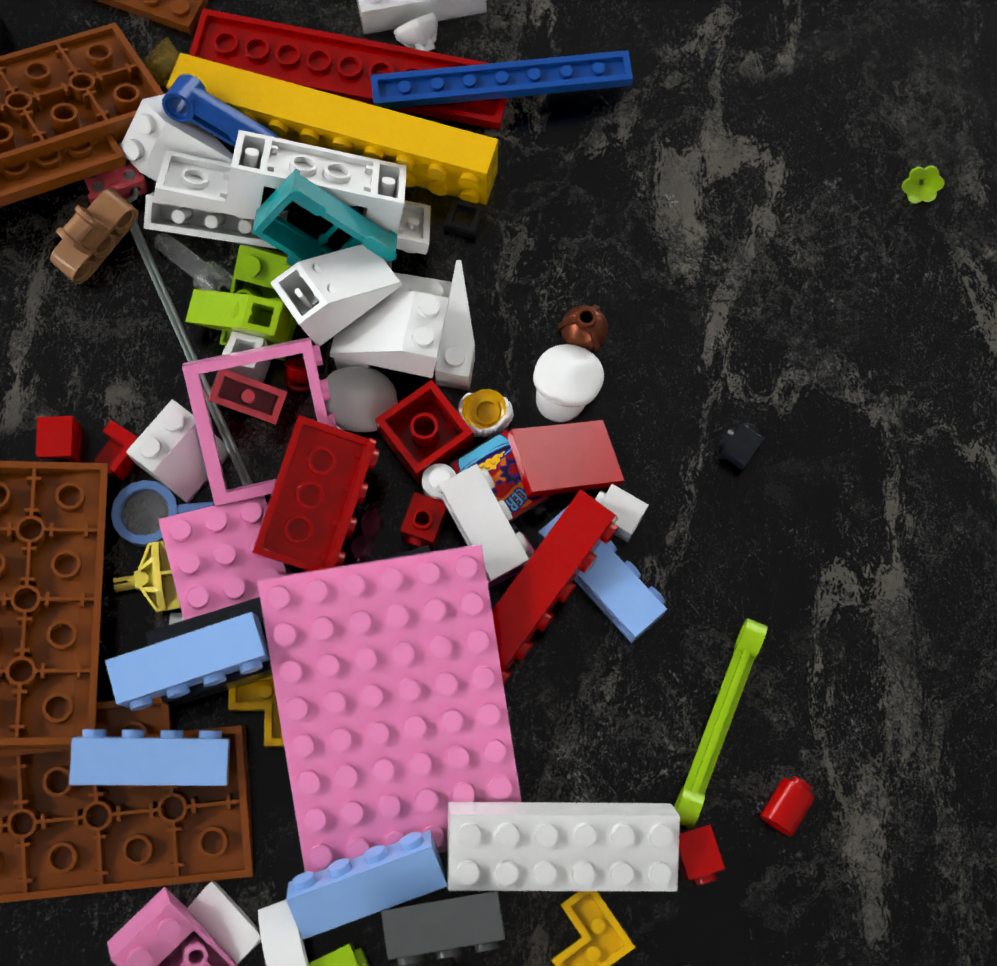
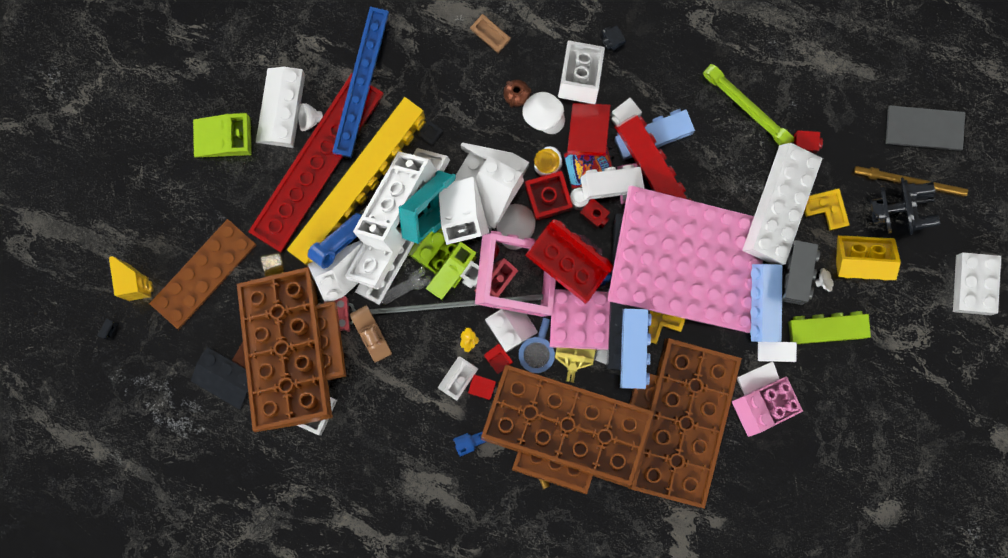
camera: 65 degrees left, 10 degrees up
(62, 398) = (457, 378): none -> white slope
(136, 394) = (468, 340): none -> yellow plant
(150, 760) = (673, 384): light blue brick -> none
(659, 414) = (581, 72): none -> white slope
(665, 253) = (490, 33): none -> medium nougat tile
(788, 805) = (800, 90): red brick -> none

